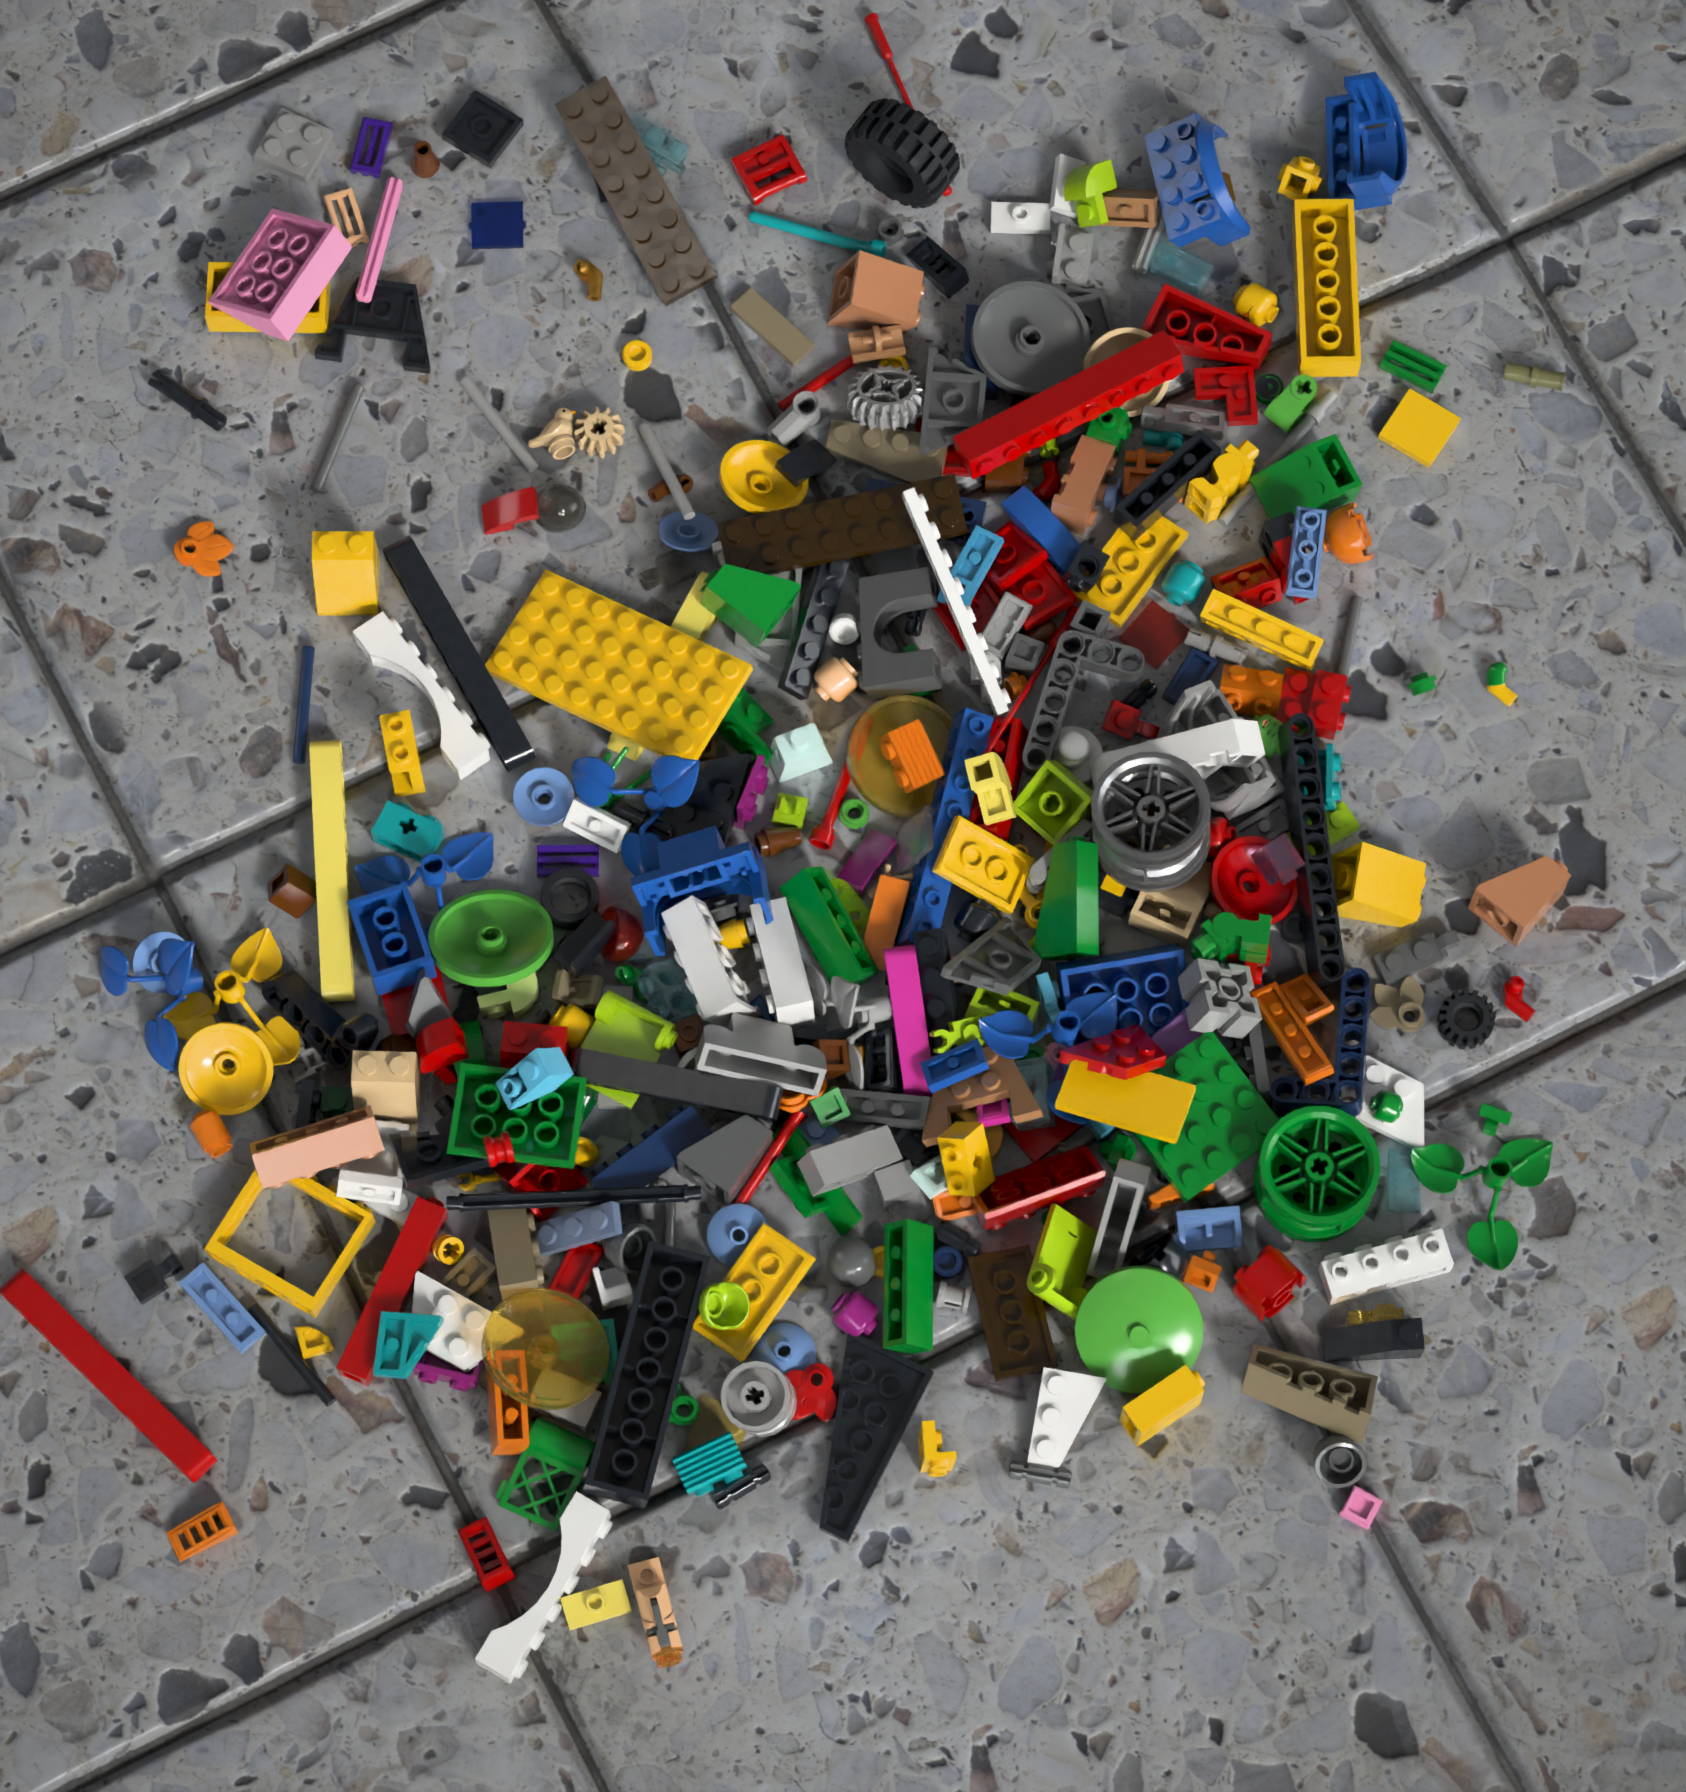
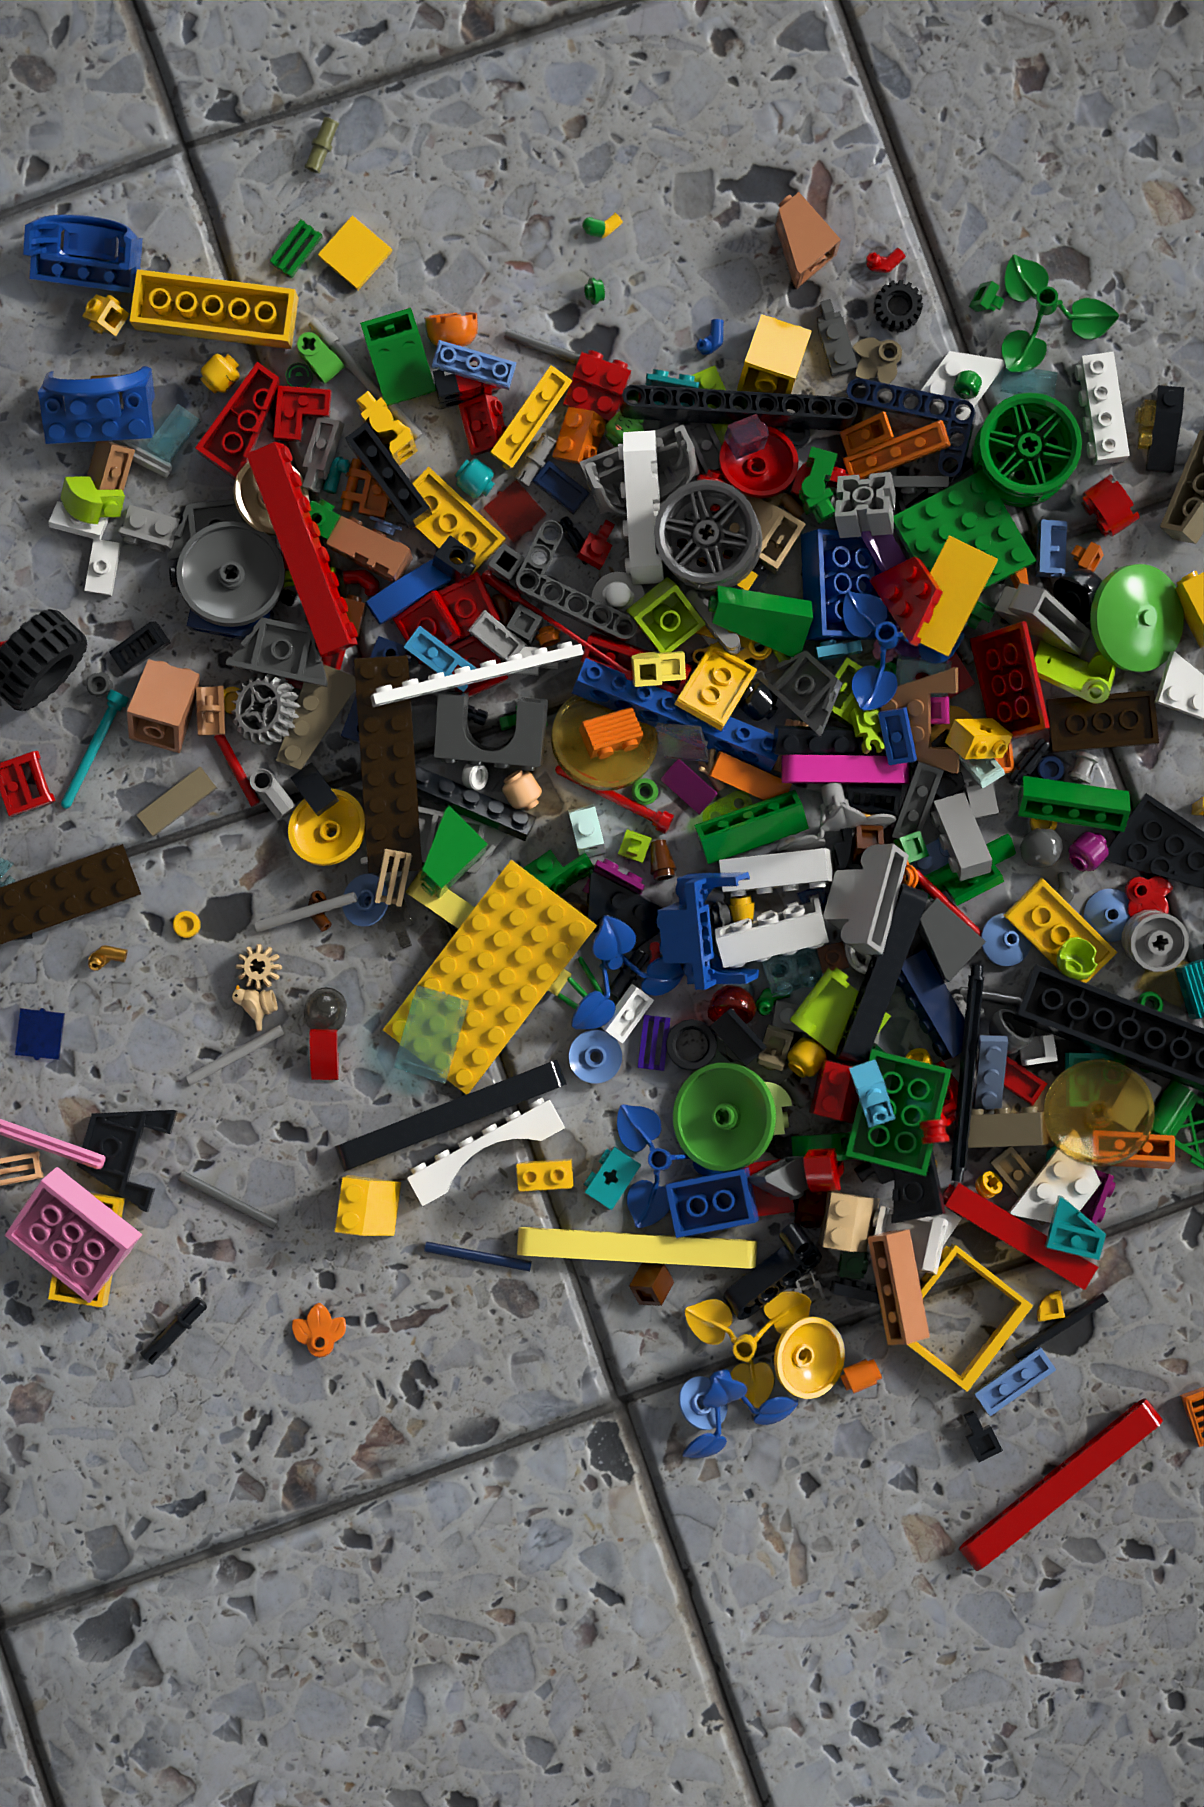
camera: 80 degrees left, 15 degrees up
(546, 615) = (431, 1034): none -> clear light blue piece
(691, 546) = (388, 899): none -> tan tile
(1388, 822) = (714, 340): none -> blue arm

